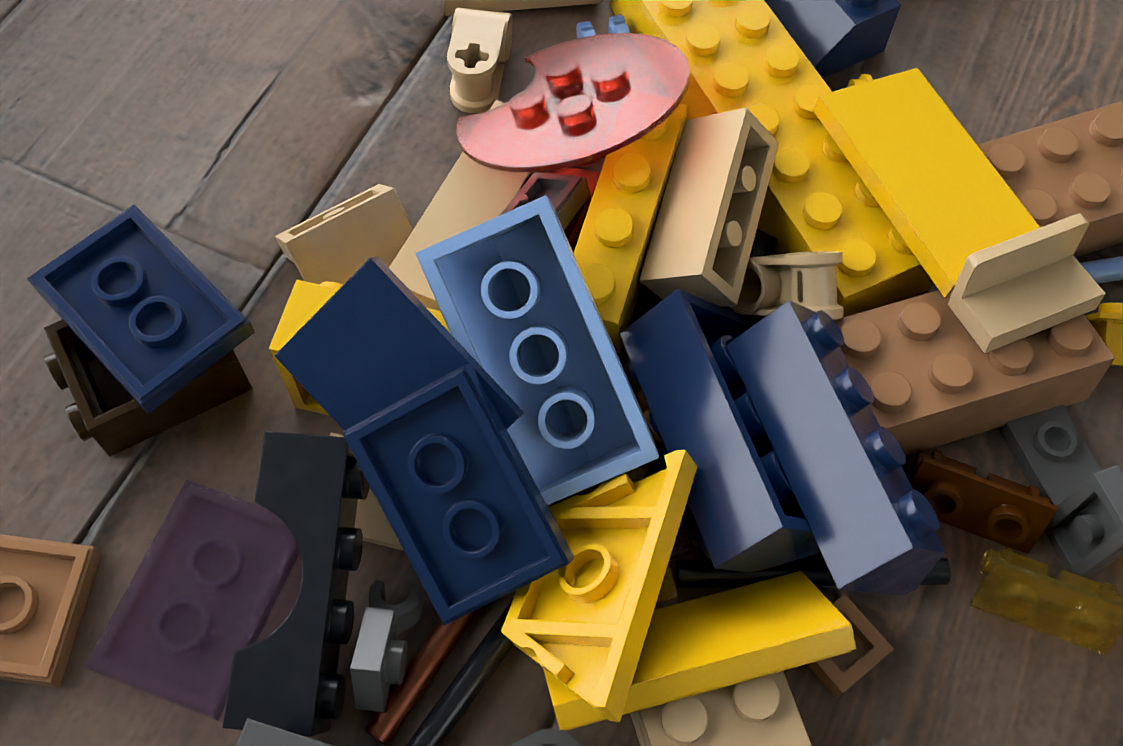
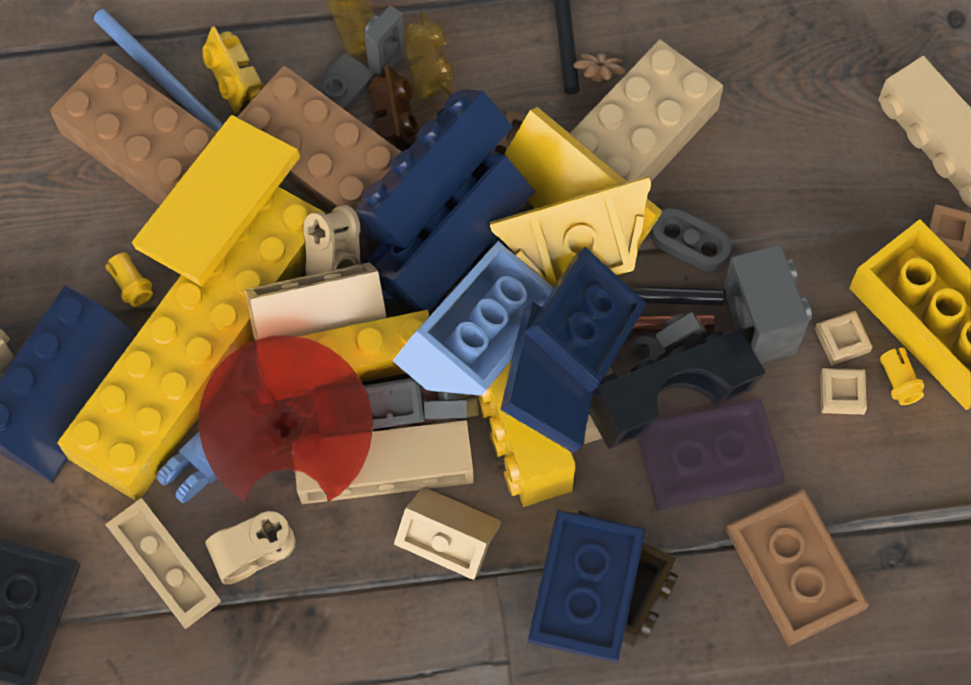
camera: 120 degrees left, 5 degrees up
(1025, 285) = (276, 114): tan panel -> none

